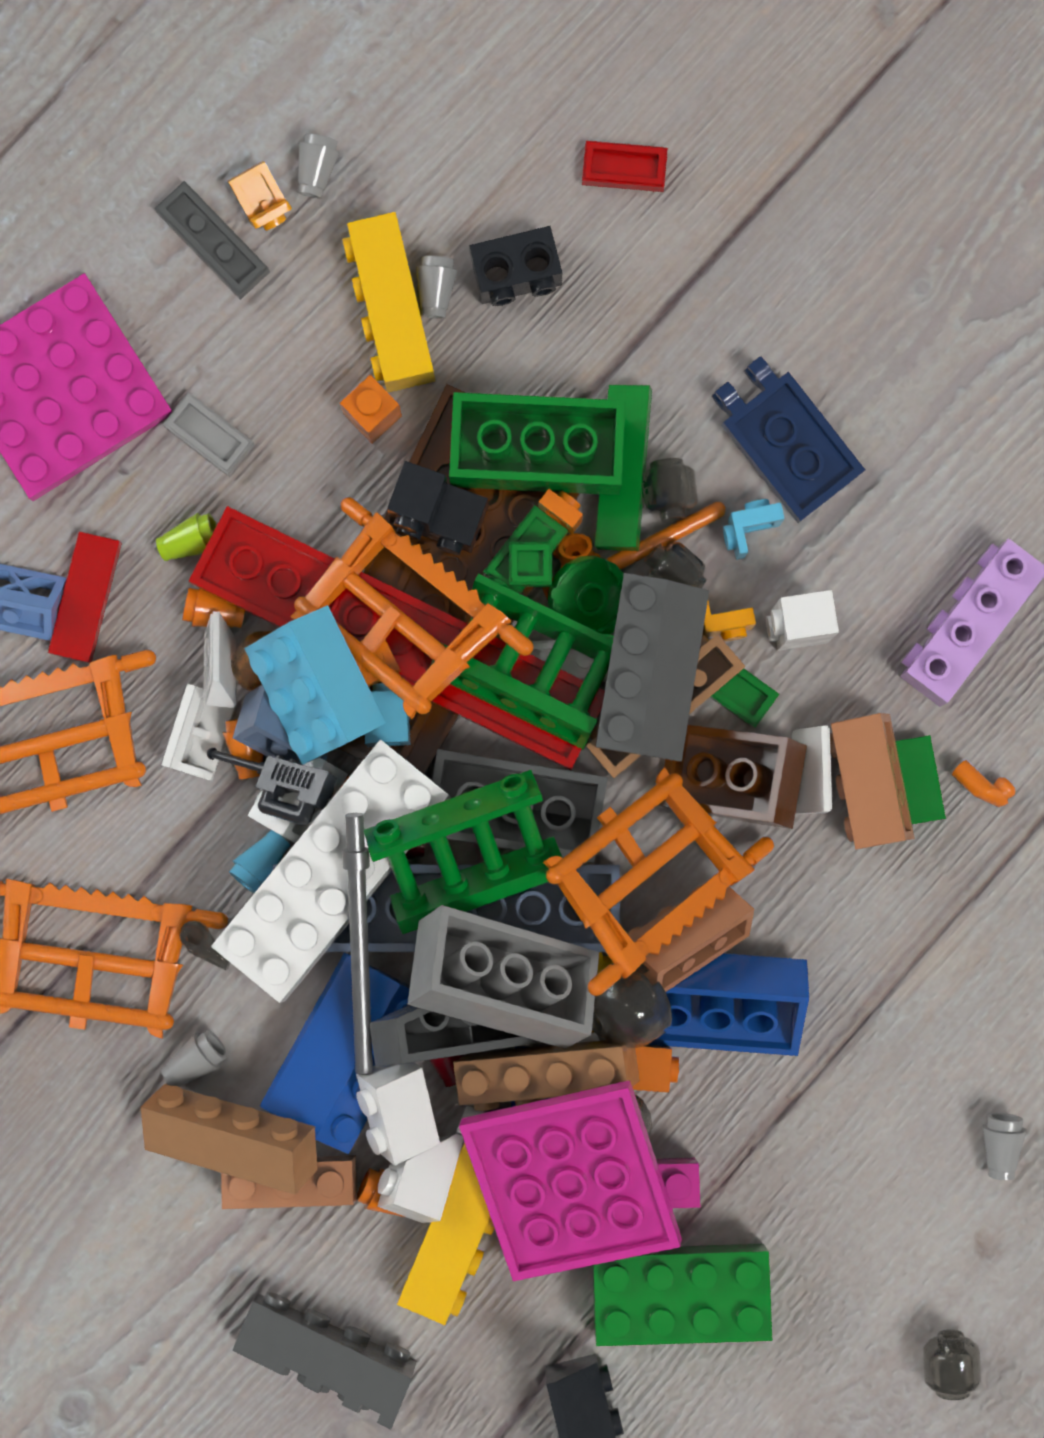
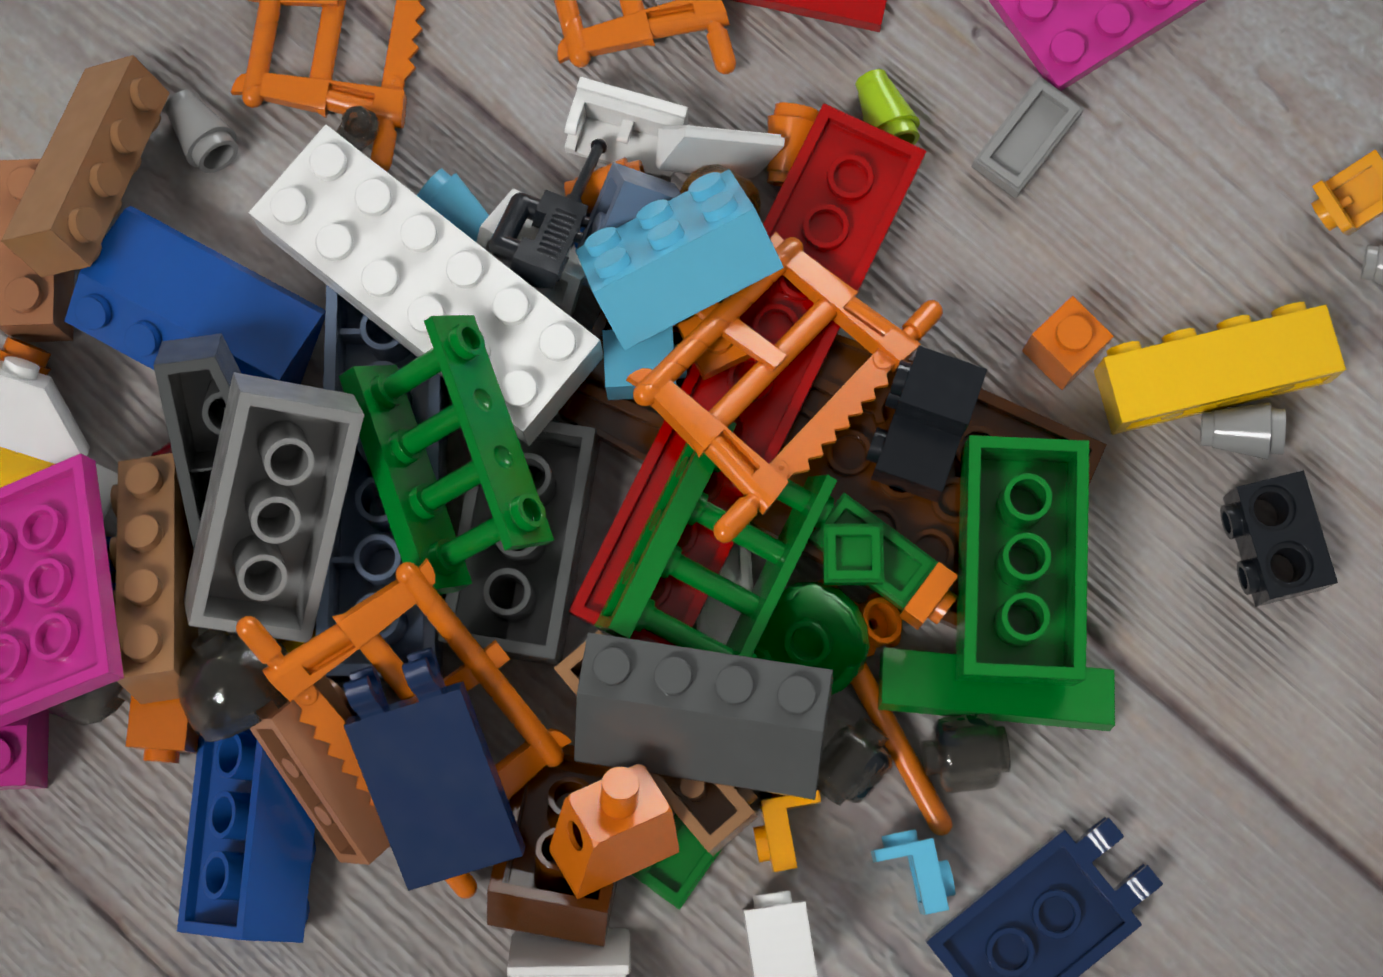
camera: 90 degrees right, 5 degrees down
(212, 240) = (1294, 137): dark grey tile -> none
(356, 860) = (424, 302): flat silver bar -> none
(397, 1111) = (105, 381): white brick -> none
(694, 861) = (430, 774): none -> dark blue tile
(726, 726) = (613, 830): none -> orange torso

